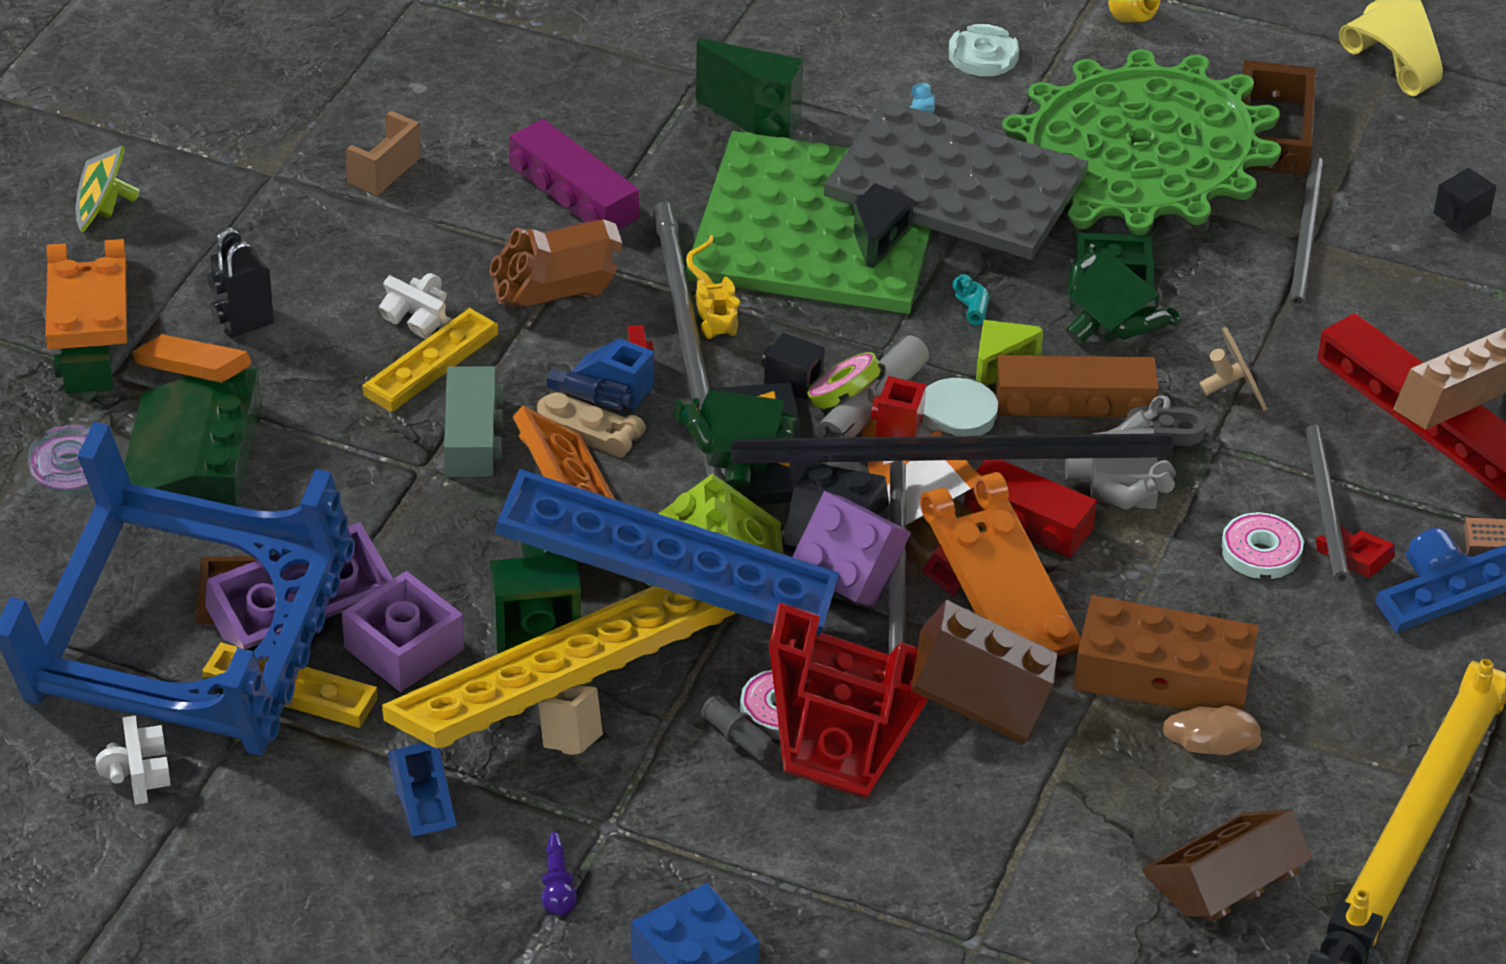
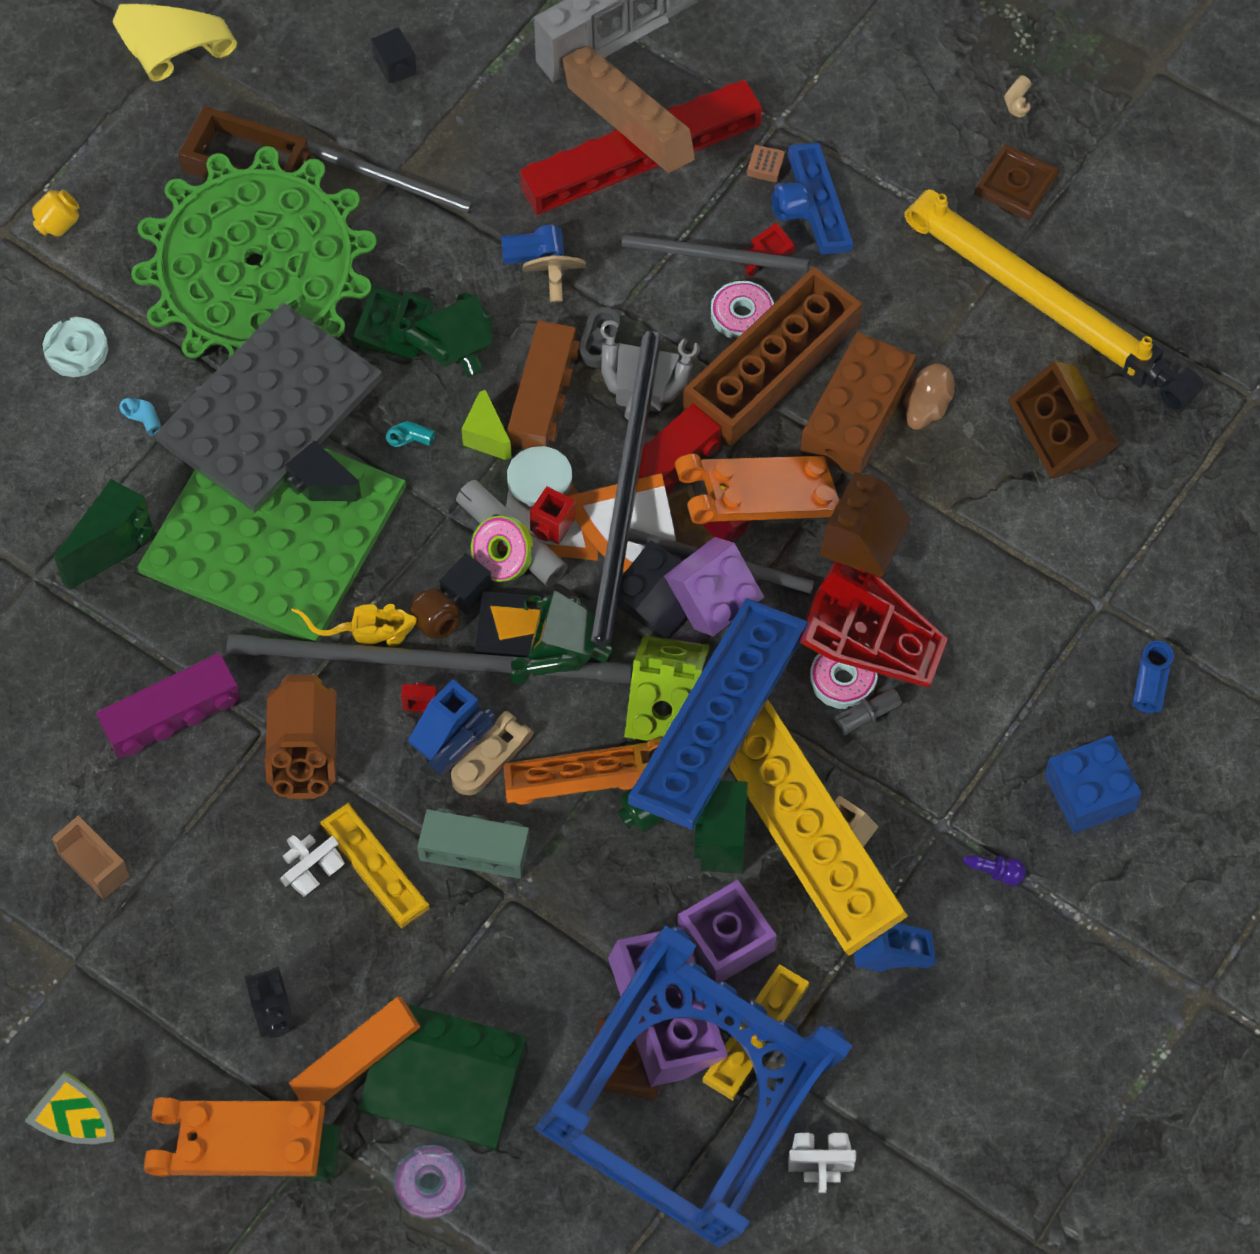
camera: 75 degrees left, 20 degrees up
(744, 345) = (435, 613): none -> reddish brown head
(1197, 564) = (774, 354): none -> dark orange brick
(1263, 355) = (527, 247): none -> blue piece

